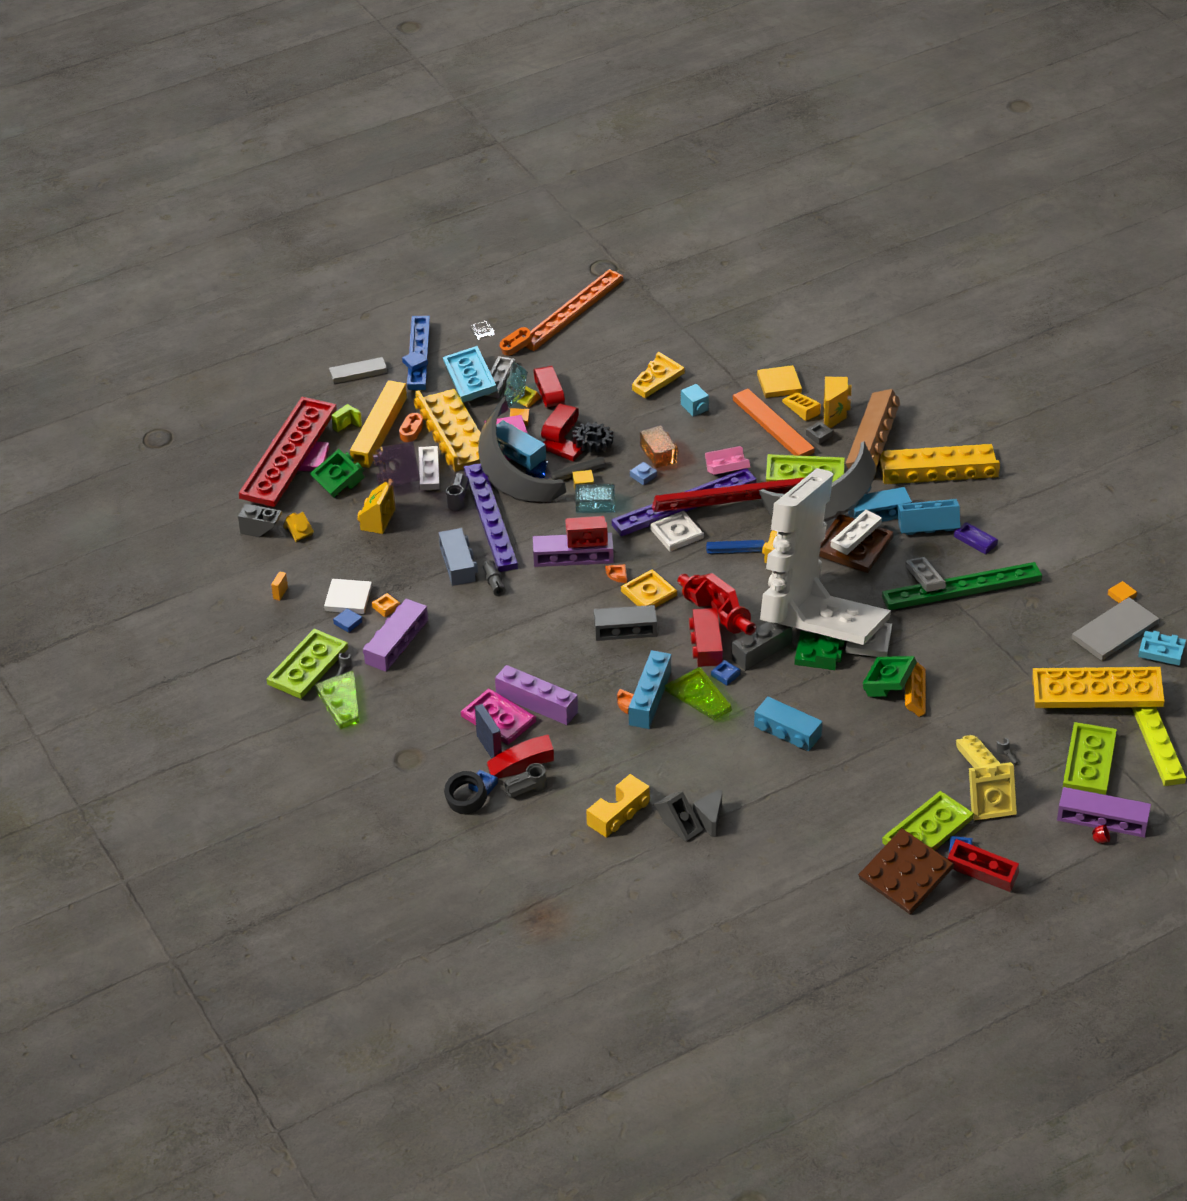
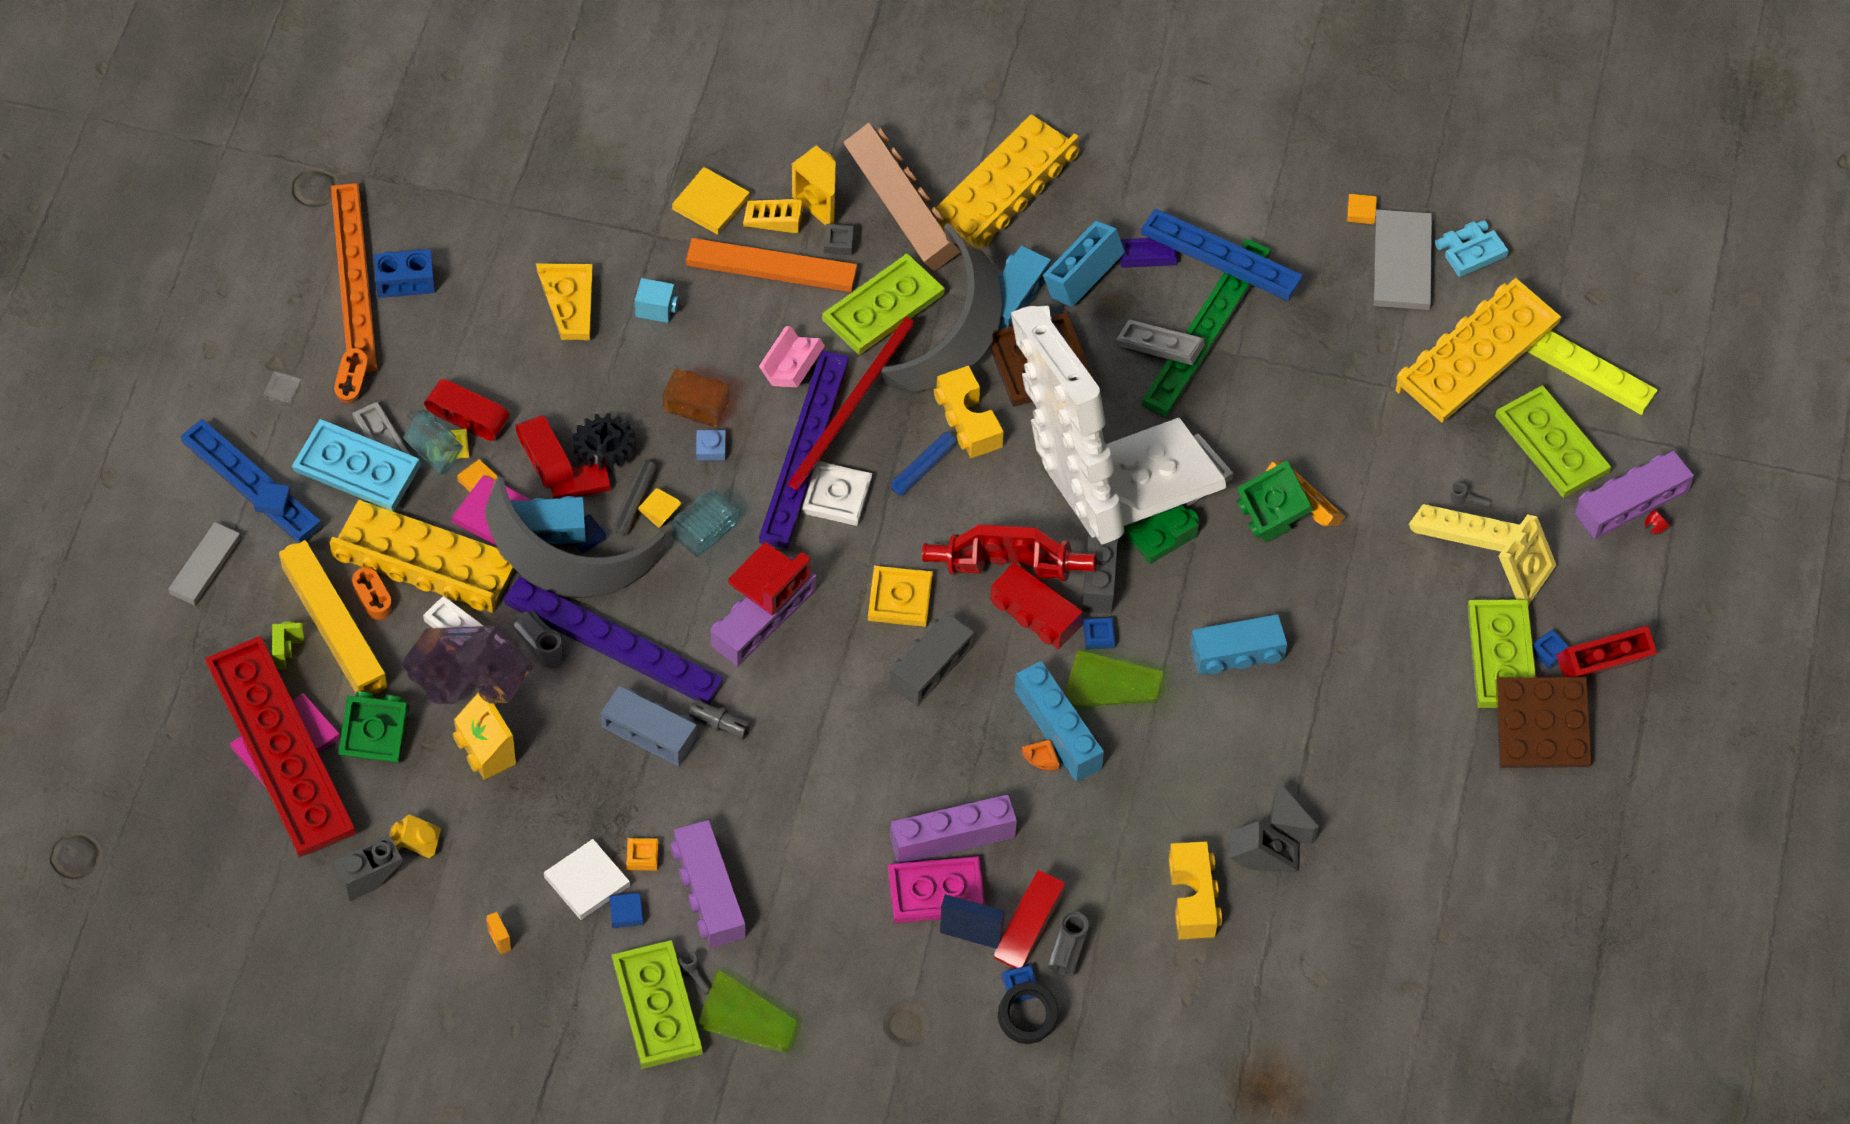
camera: 50 degrees left, 15 degrees up
(594, 319) = (404, 278): none -> blue brick
(617, 572) = (839, 599): orange tile -> none
(1008, 557) = (1222, 254): none -> blue plate

